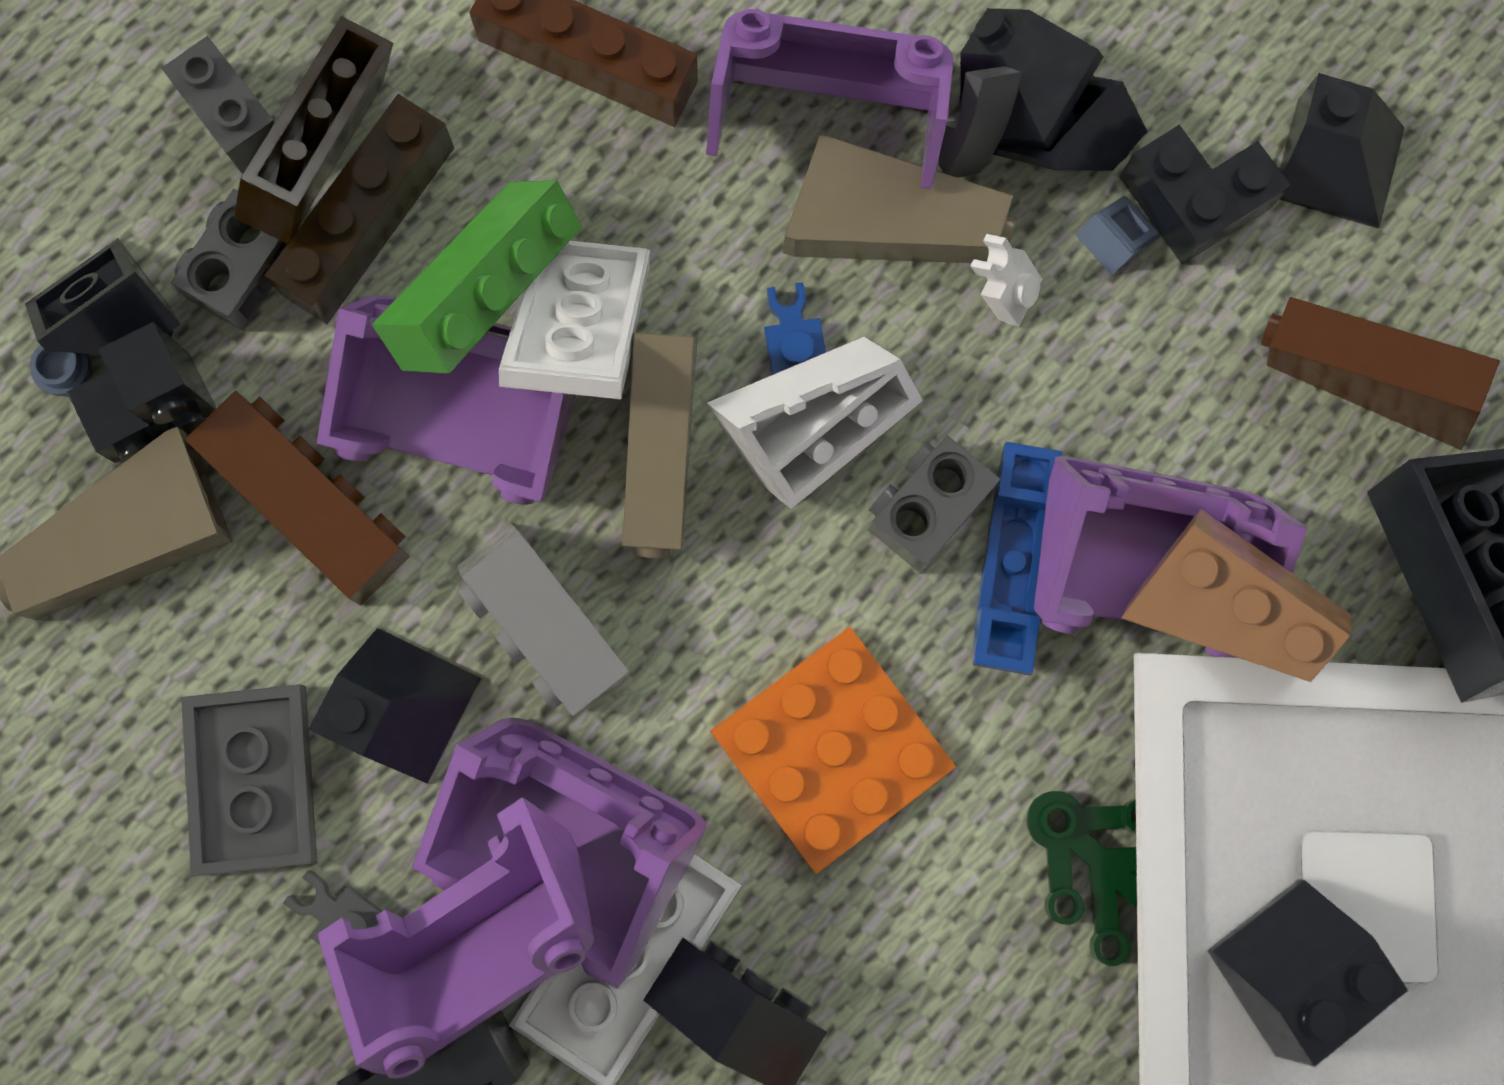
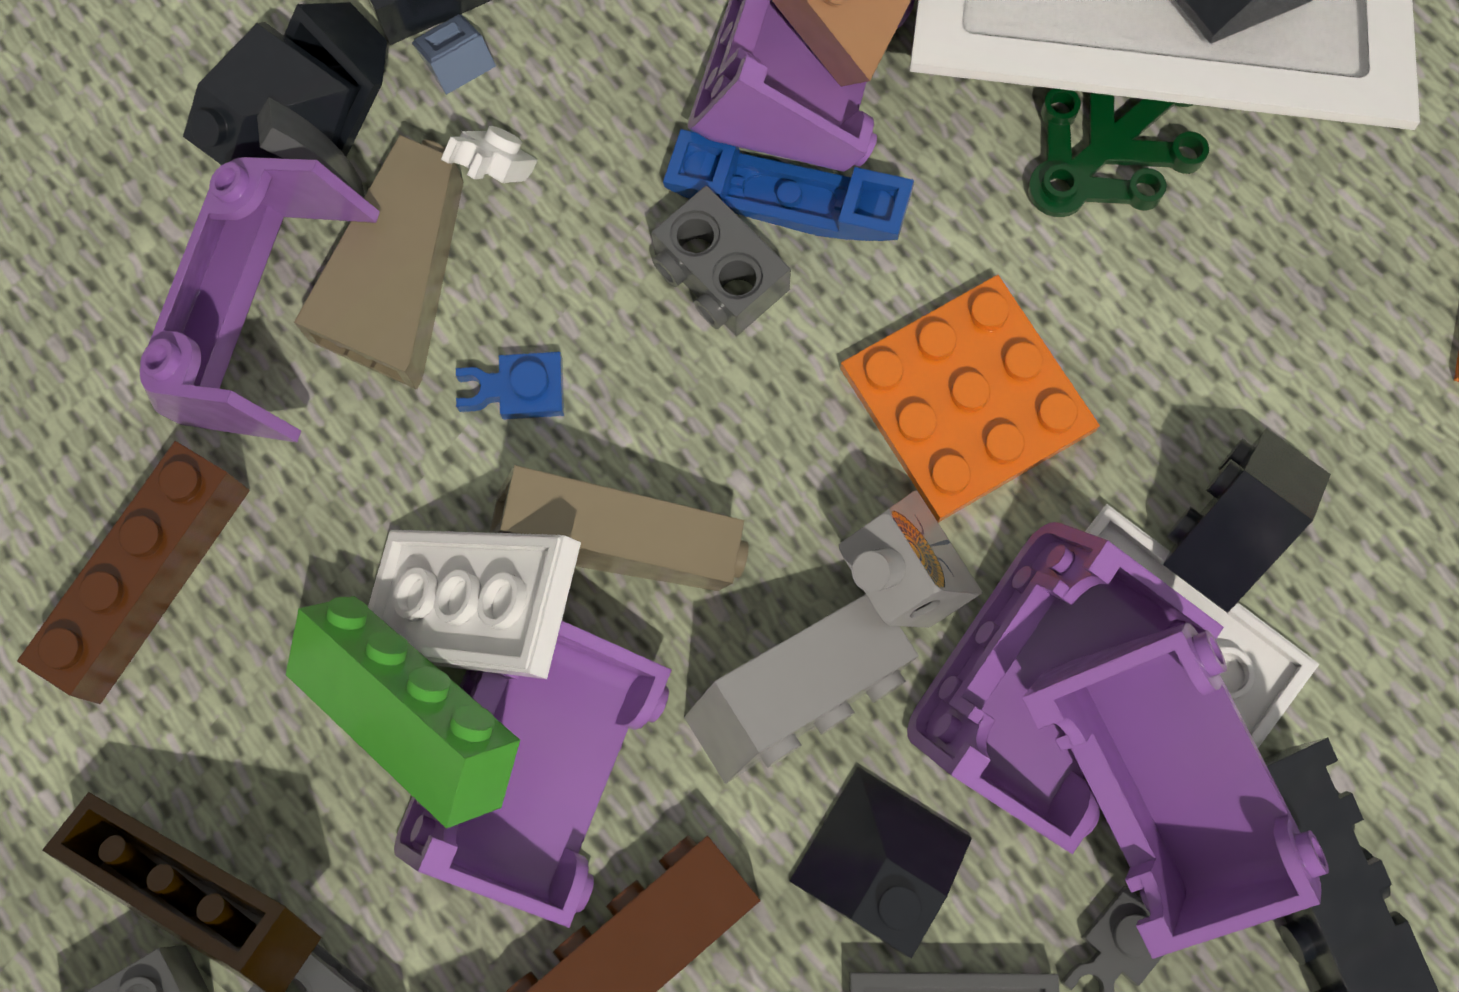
camera: 75 degrees left, 5 degrees down
(361, 209) = (287, 853): dark brown brick -> none
(656, 698) = (907, 564): none -> light grey torso
(816, 416) = (613, 363): white wedge -> none

